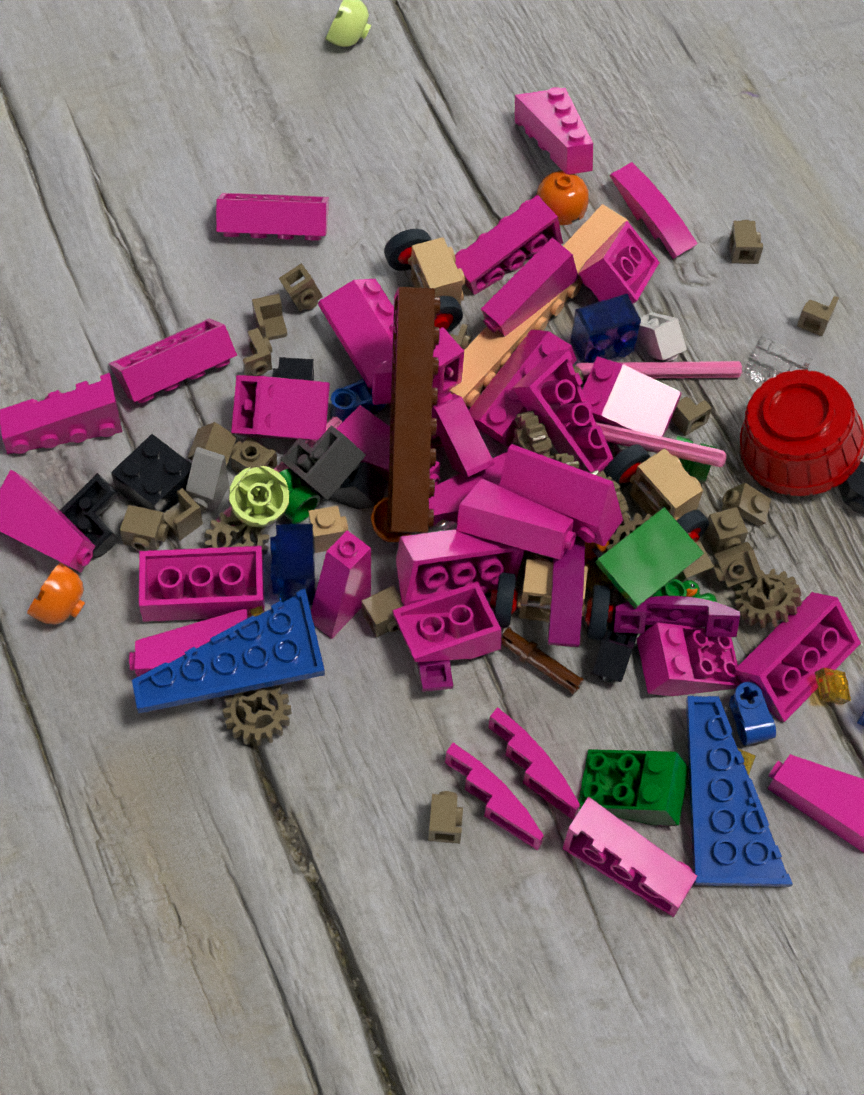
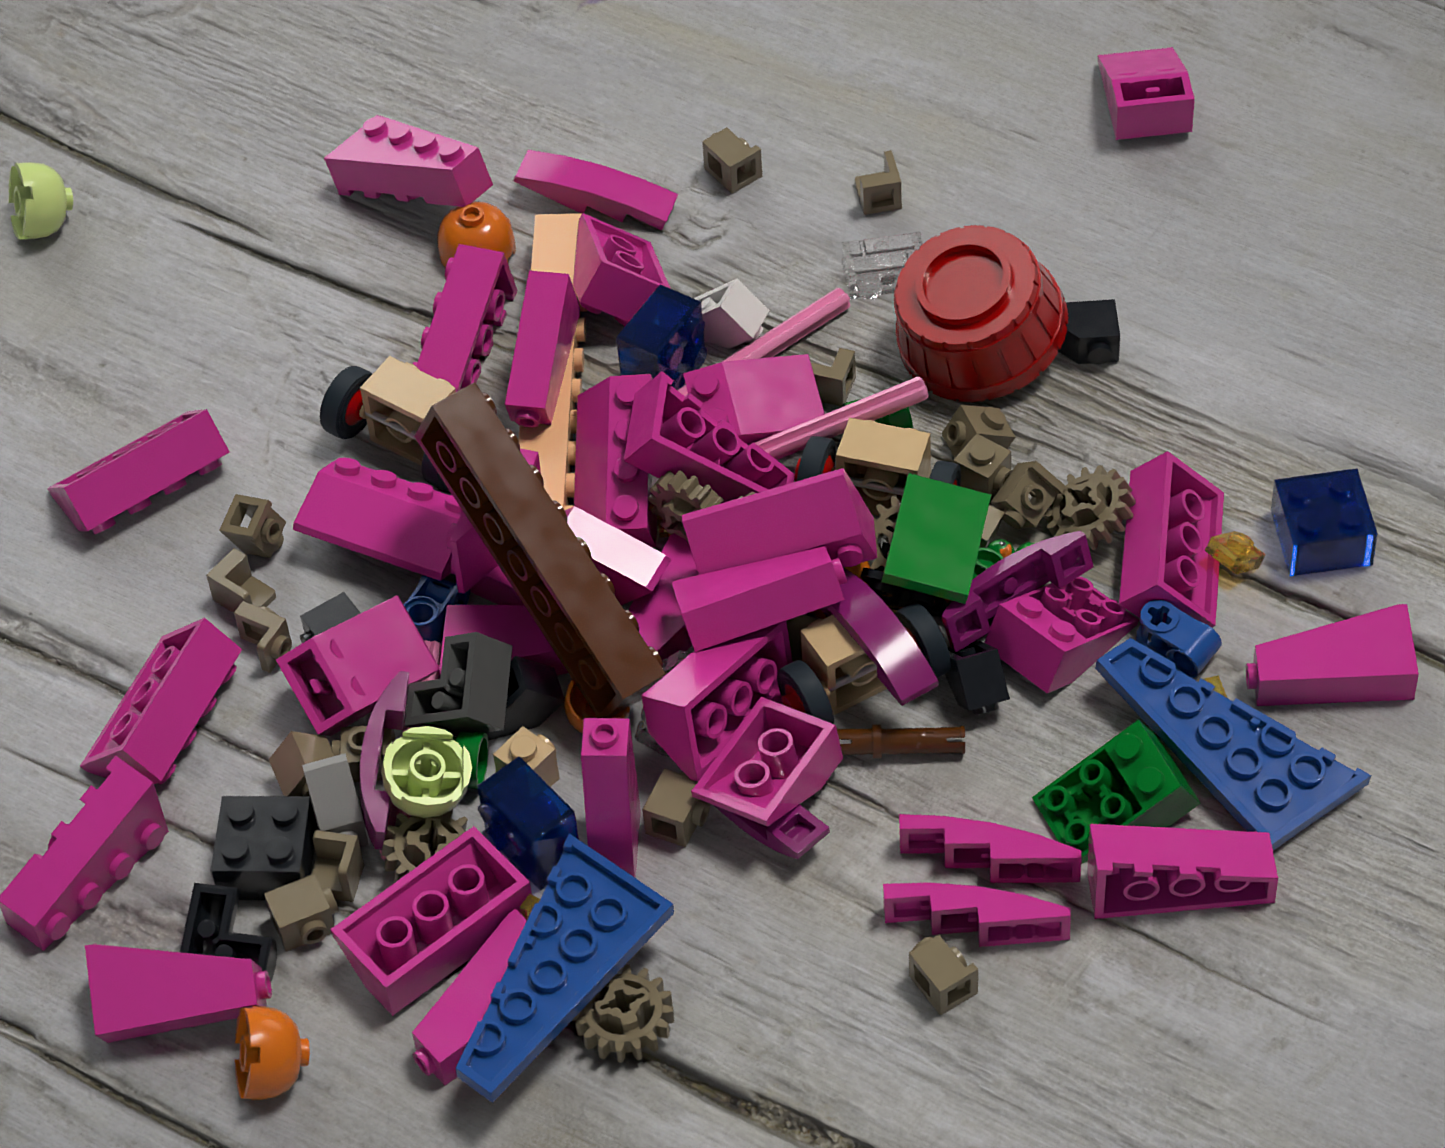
camera: 30 degrees left, 10 degrees down
(272, 445) = (389, 714): none -> magenta slope

